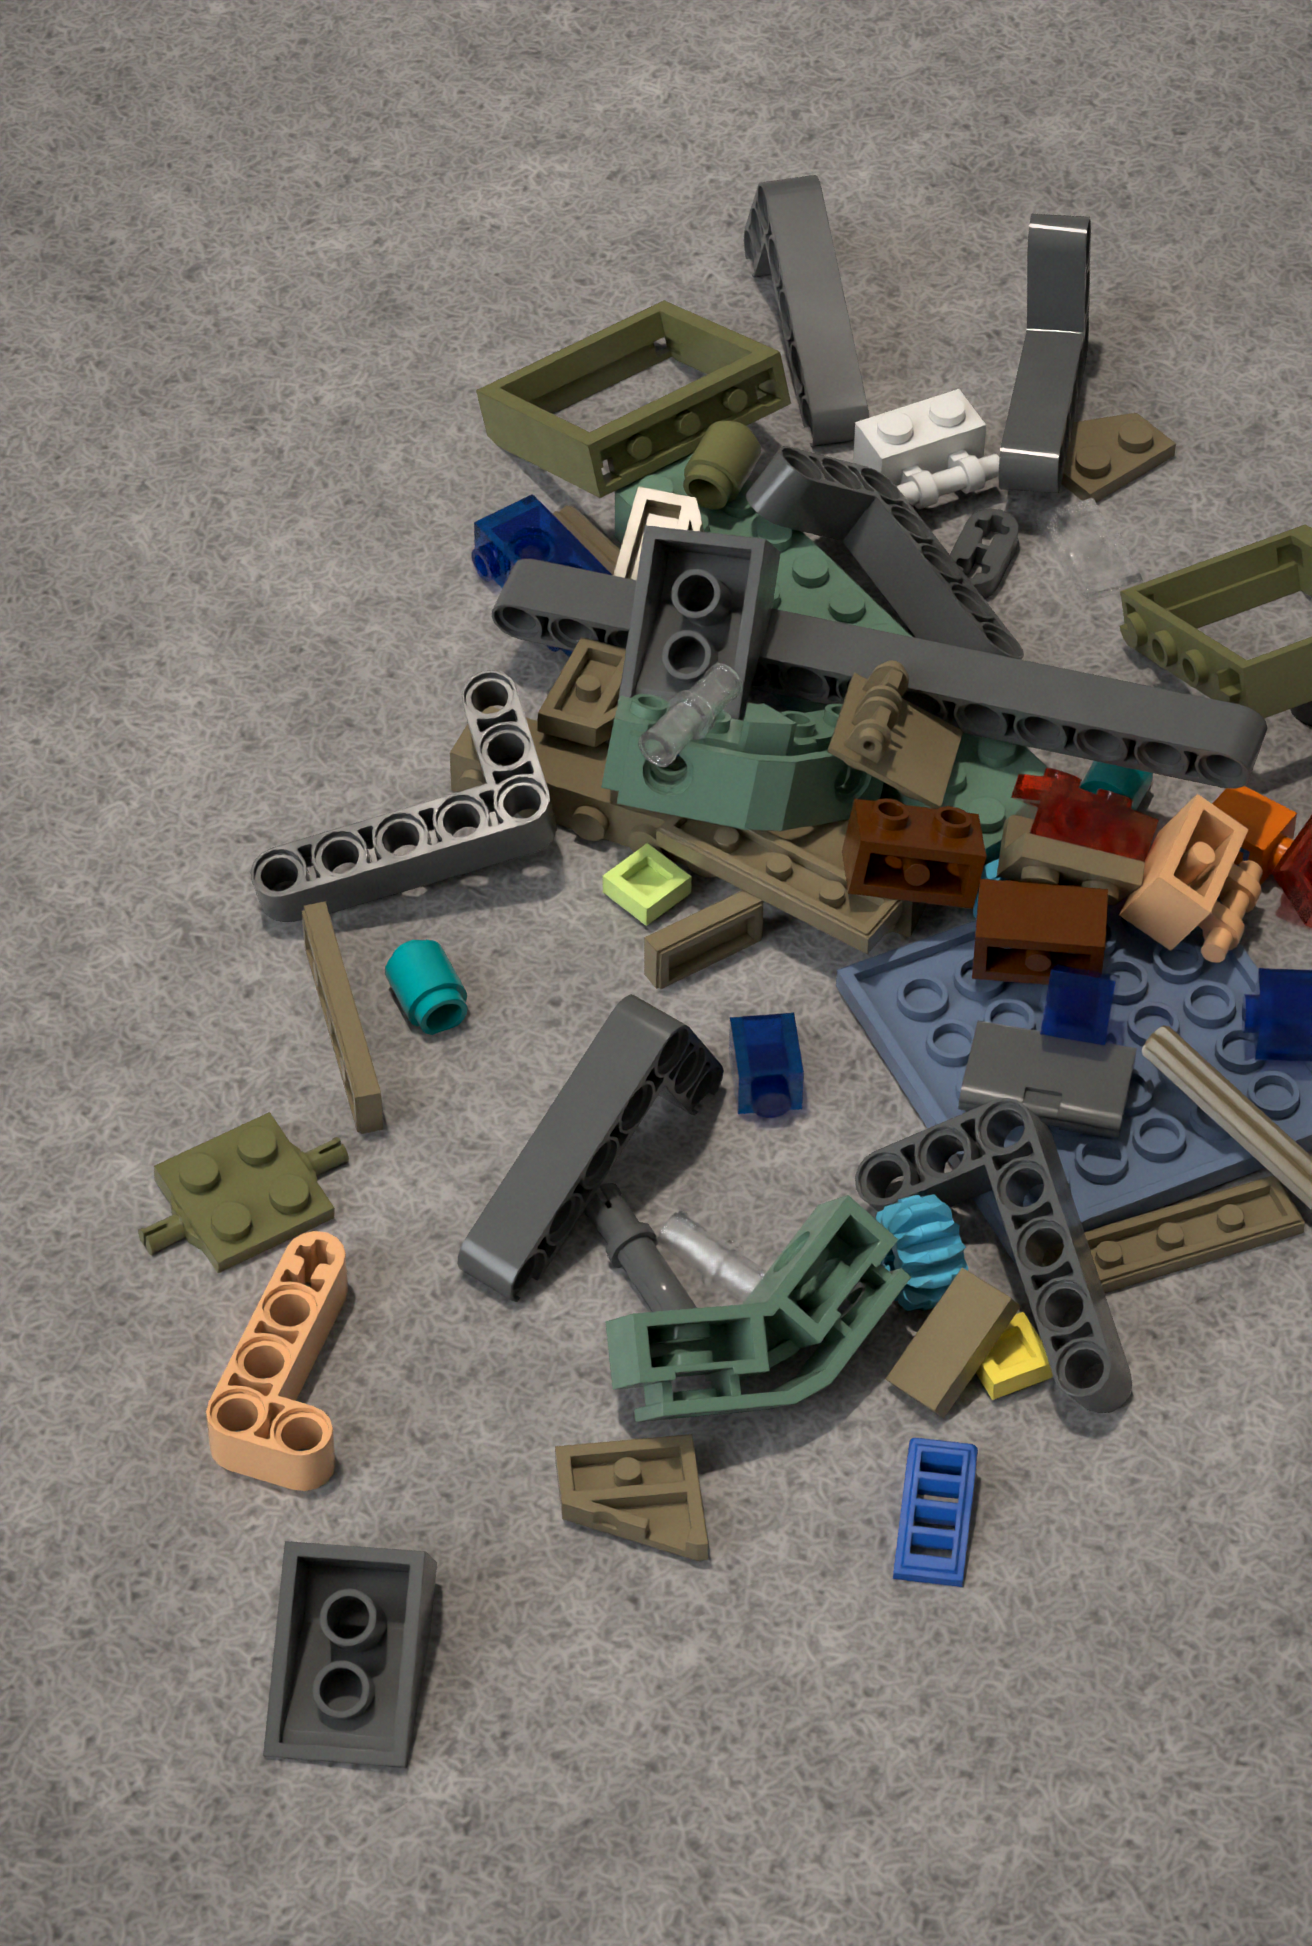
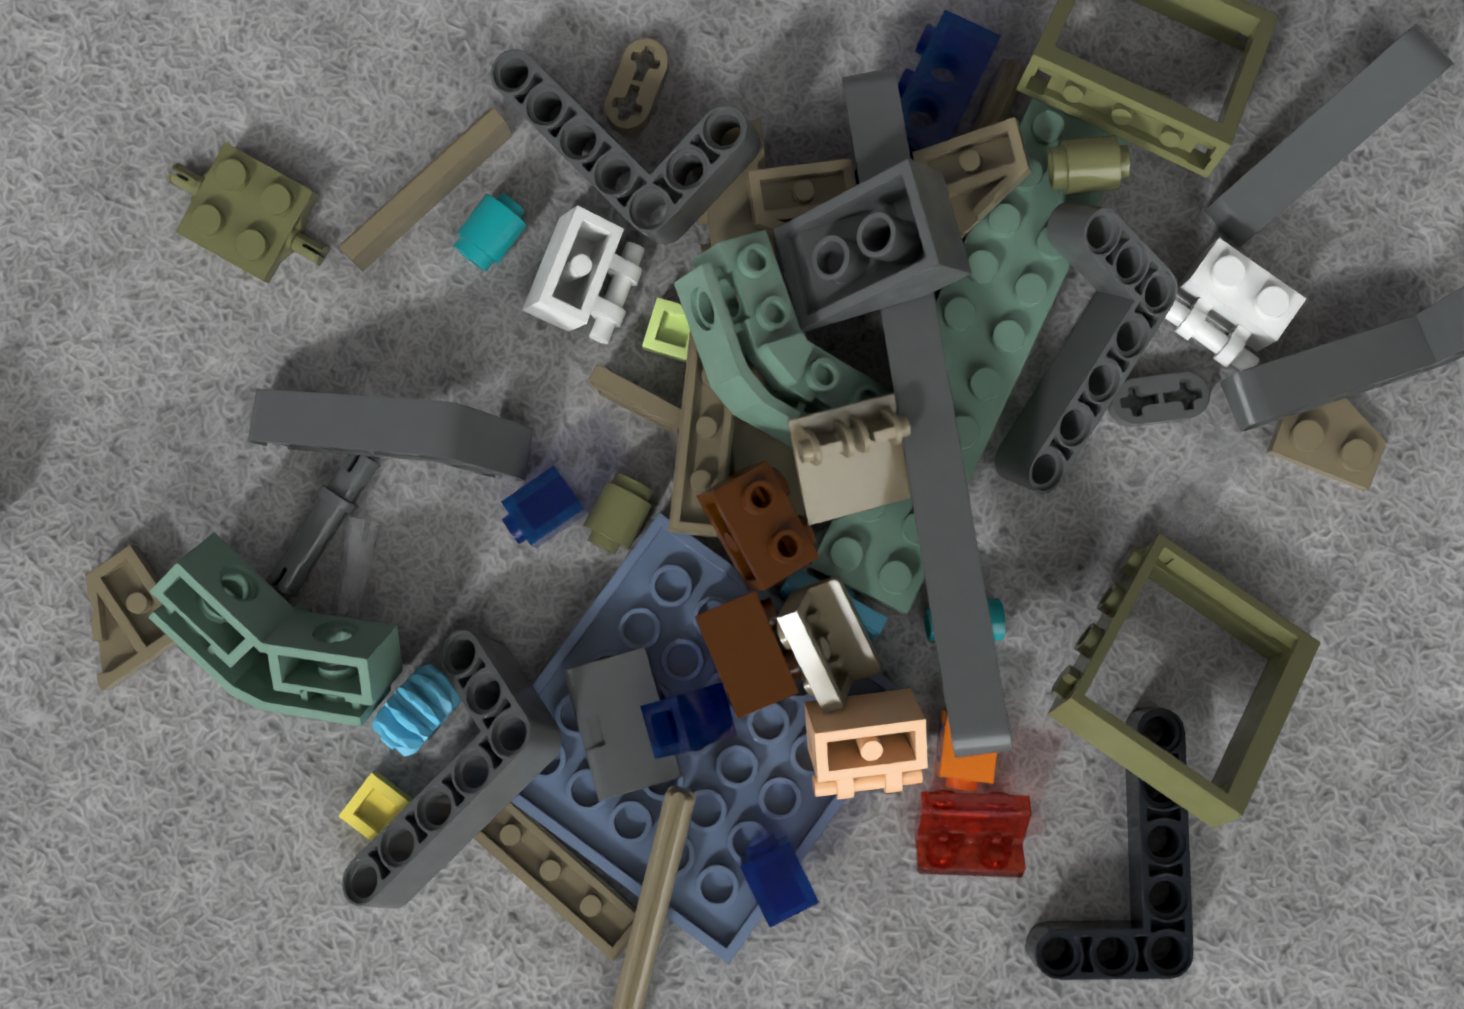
camera: 60 degrees right, 35 degrees up
(268, 1407) = (115, 325): light nougat beam -> none
(364, 795) = (626, 81): none -> dark tan beam
(530, 923) = (574, 271): none -> white brick
(690, 715) = (739, 302): clear pin -> none
(821, 1010) = (618, 513): none -> olive brick
(940, 1471) = (258, 811): blue slope -> none
(953, 1342) = (354, 771): dark tan tile -> none
(1085, 818) = (871, 635): clear red bracket -> none

